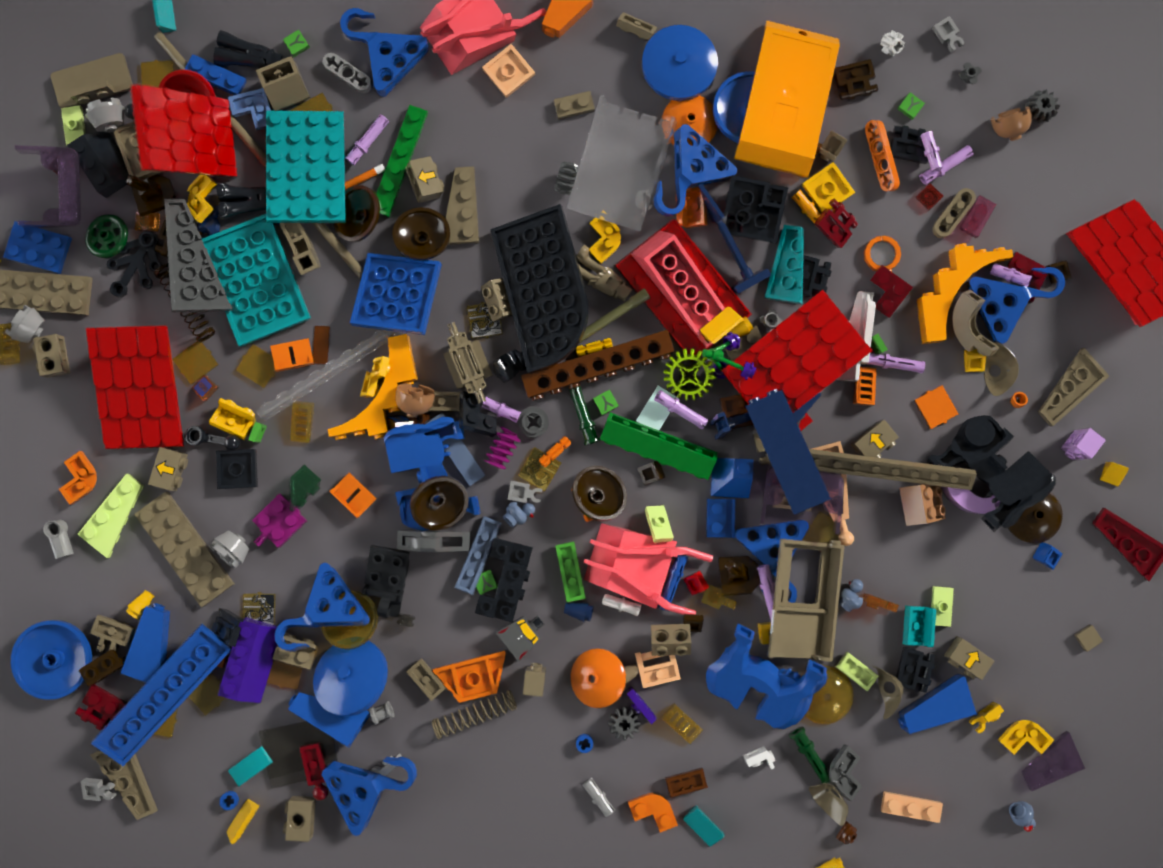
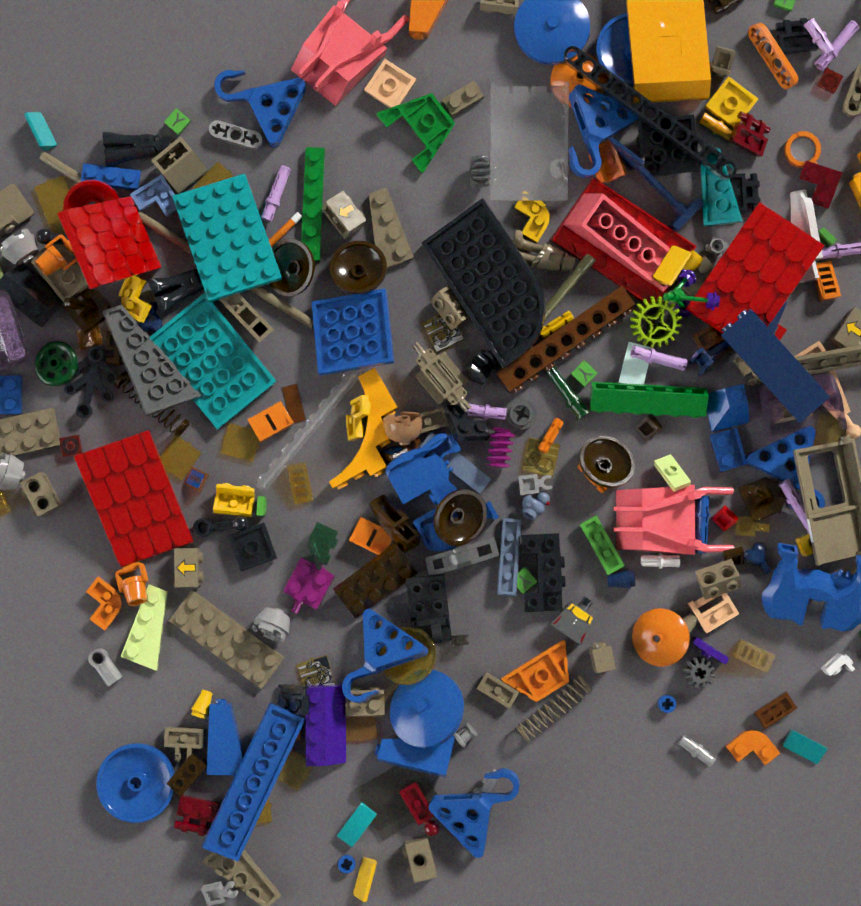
camera: 10 degrees left, 0 degrees up
(95, 318) = (71, 445): none -> clear red tile
(109, 471) = (134, 586): none -> orange piece
(127, 135) = (52, 260): none -> orange piece
(342, 537) = (375, 580): none -> dark brown plate
(379, 489) = (395, 523): none -> dark brown slope
(532, 115) = (427, 121): none -> green wing
(716, 629) = (757, 557): none -> dark blue rock
(743, 162) = (654, 122): none -> black beam

